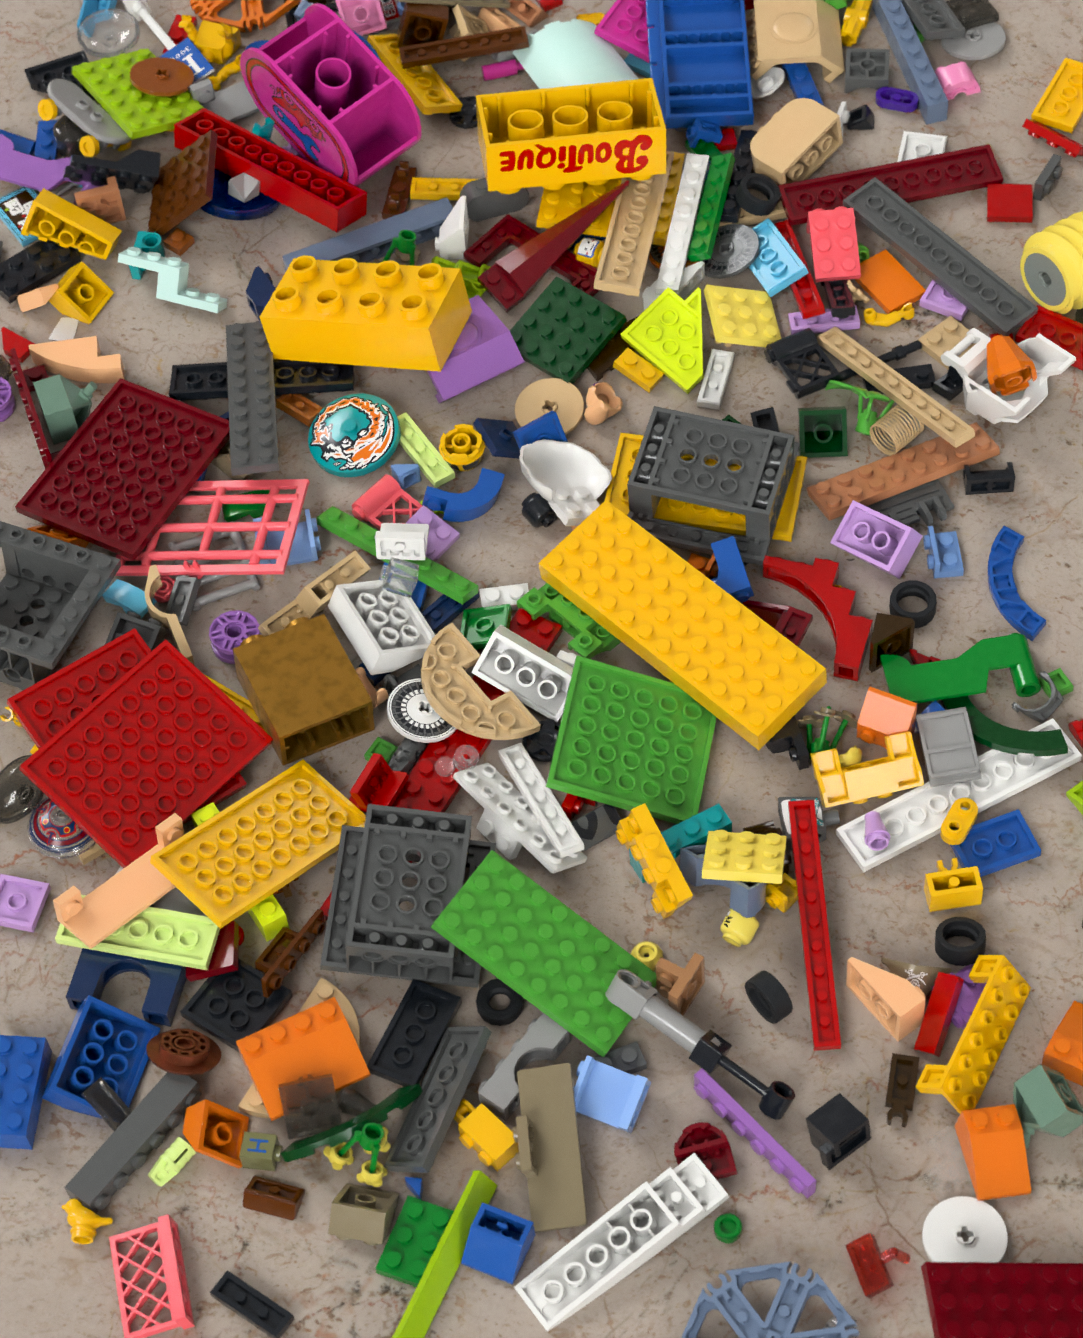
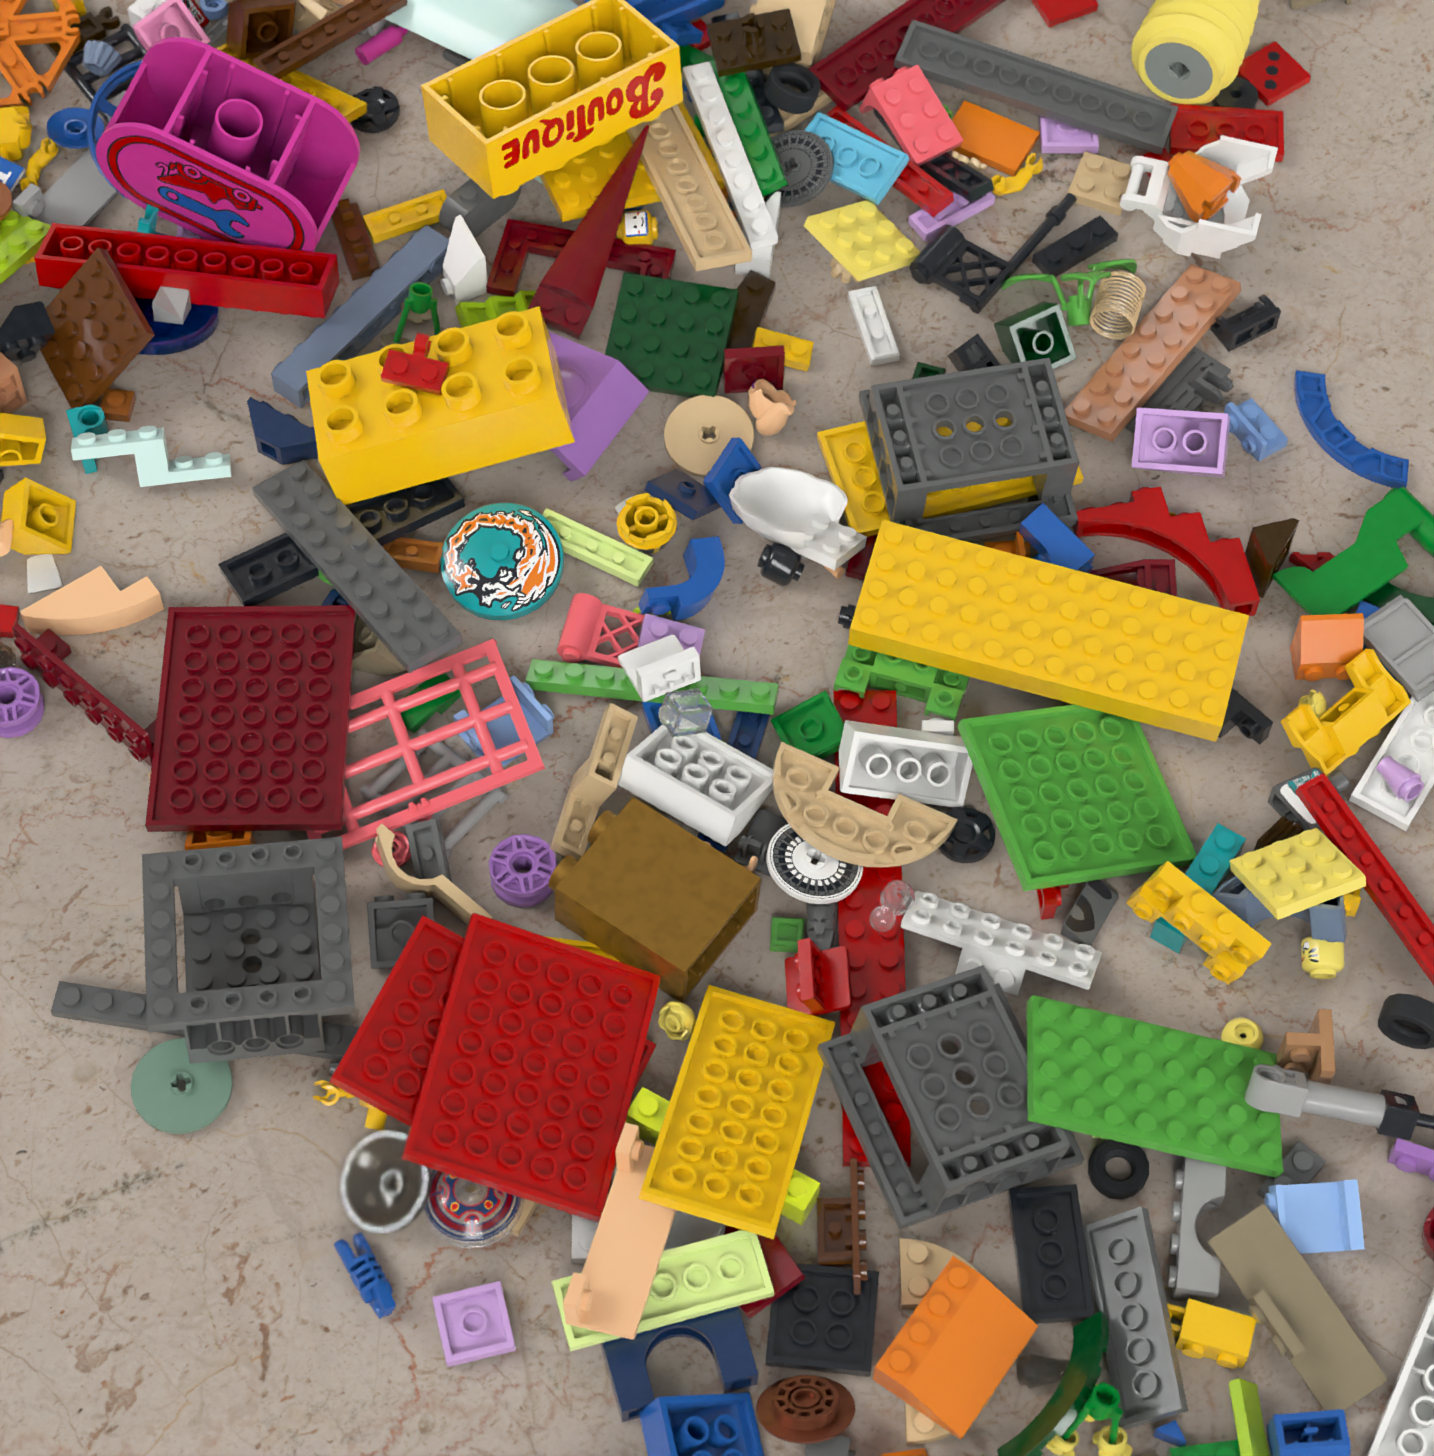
camera: 35 degrees left, 5 degrees up
(63, 405) = (119, 669): sand green piece -> none
(127, 597) = (366, 879): medium azure slope -> none
(269, 770) = (677, 1020): none -> light yellow plate
(310, 1105) = (1001, 1400): clear smoke piece -> none
(351, 278) = (415, 370): none -> red plate
(406, 474) = (596, 583): medium blue slope -> none
(503, 595) = (806, 683): white plate -> none
(541, 800) = (1014, 908): white tile -> none
(603, 369) = (749, 364): none -> dark red tile
(671, 337) = (802, 296): neon yellow wing -> none
(743, 151) = (753, 42): none -> dark brown plate
(811, 721) = (1275, 707): plant -> none
(896, 387) = (1098, 256): tan plate -> none
(917, 589) = (1265, 482): black tyre -> none
(949, 384) = (1133, 229): black slope -> none

